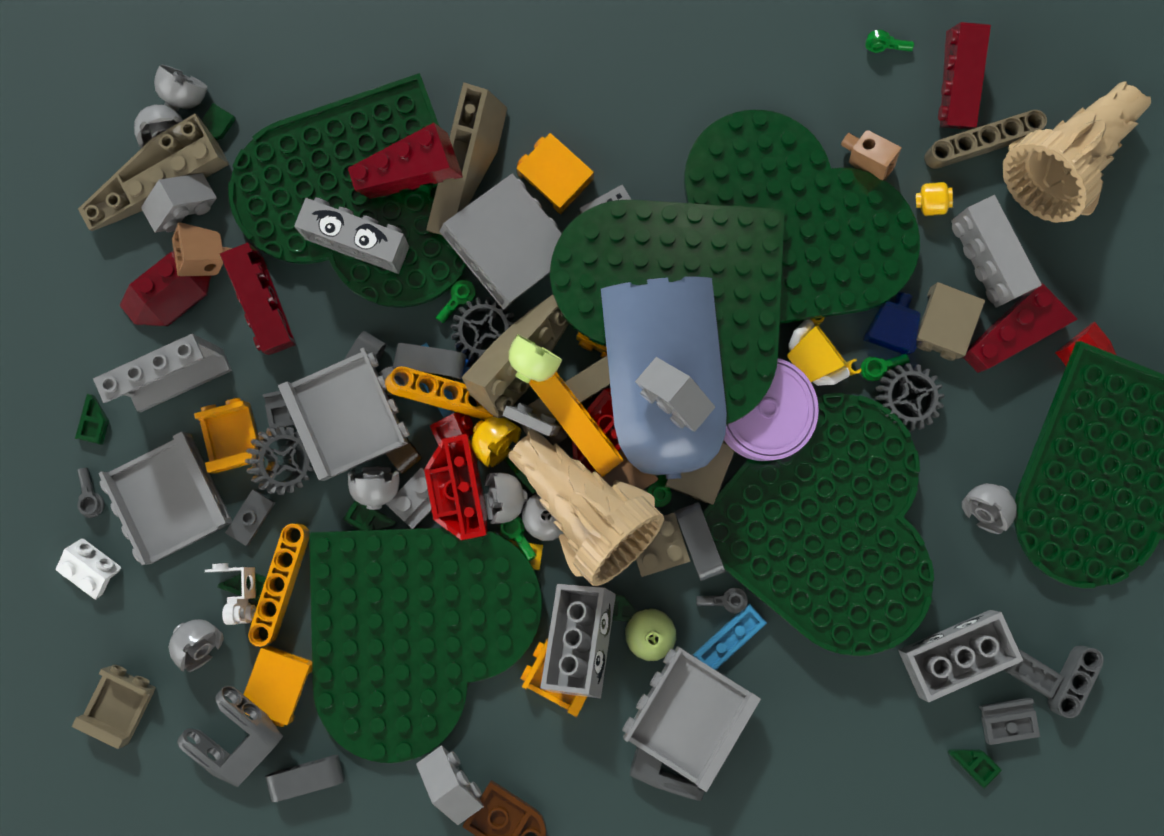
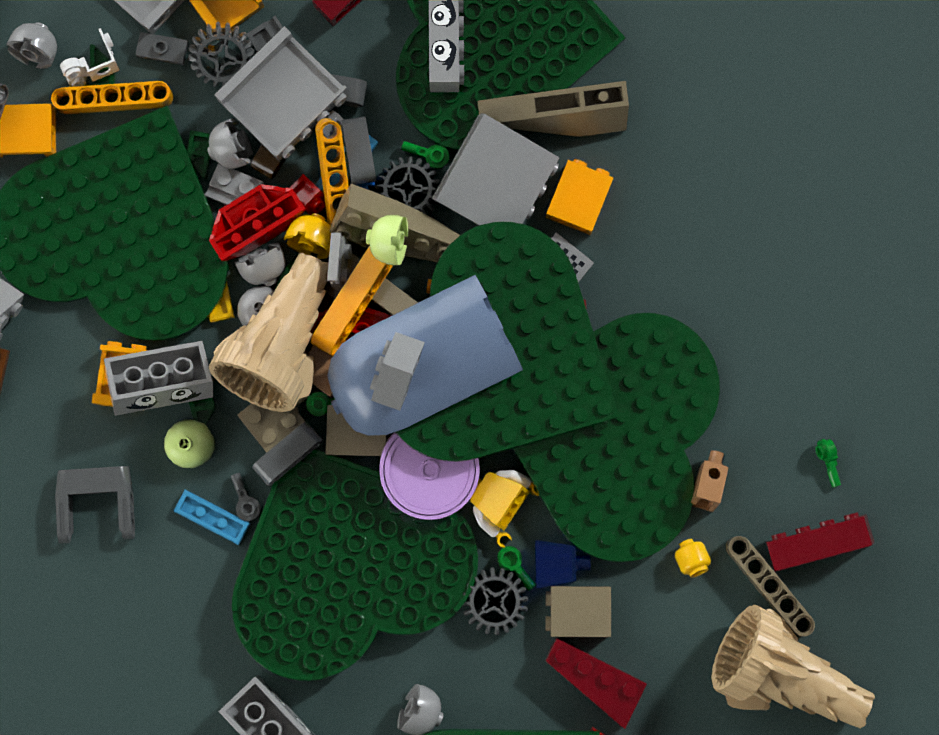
camera: 75 degrees right, 0 degrees up
(411, 162) = (529, 62): dark red wedge -> none
(514, 531) = (236, 286): green plate -> none
(690, 717) = (128, 502): light grey panel -> none
(995, 251) = (660, 630): light grey brick -> none

